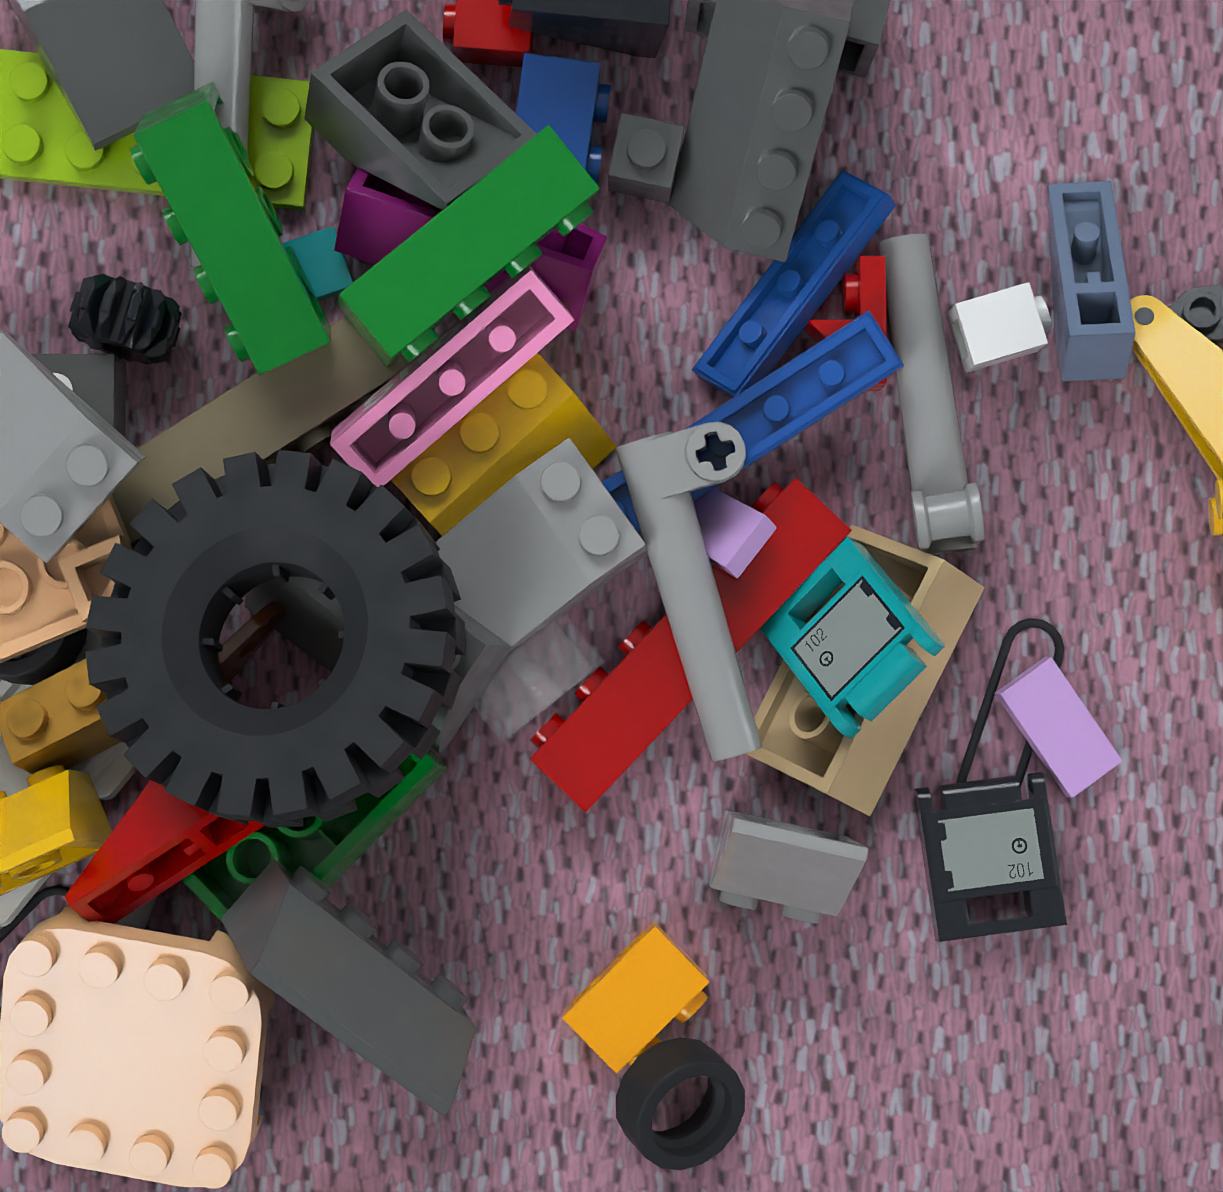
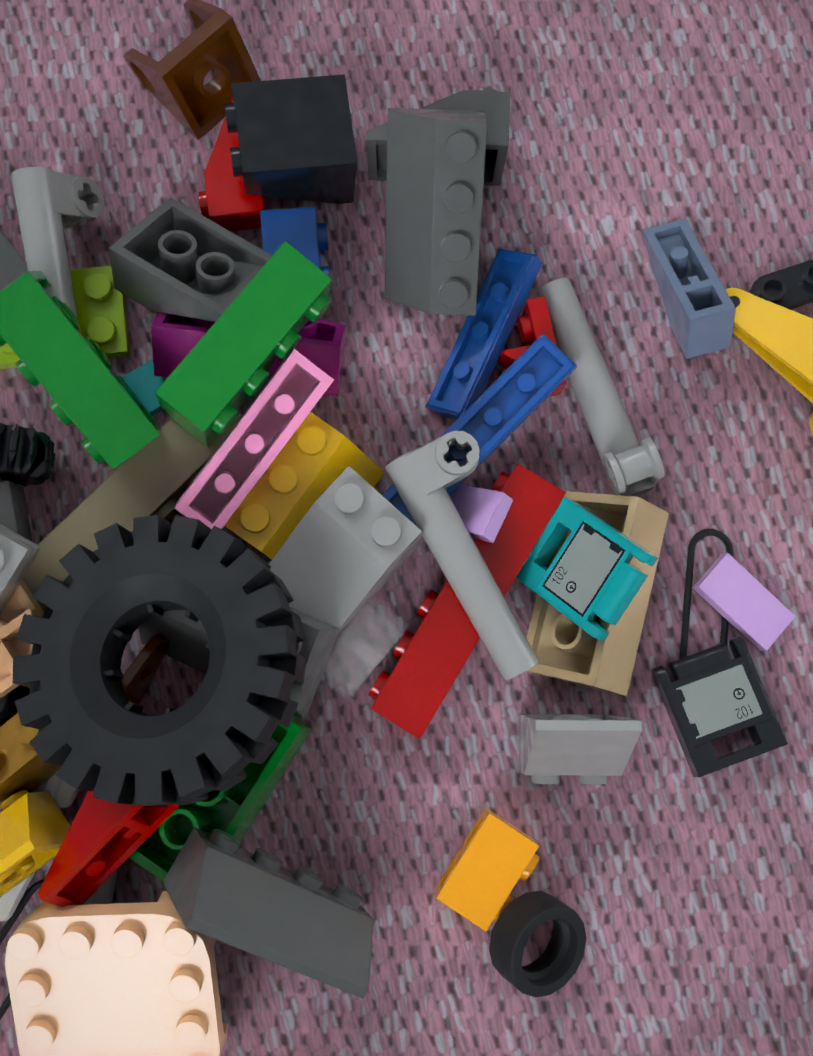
camera: 10 degrees left, 5 degrees down
(645, 158) = (360, 266): dark grey brick -> none
(999, 326) = (634, 330): white brick -> none

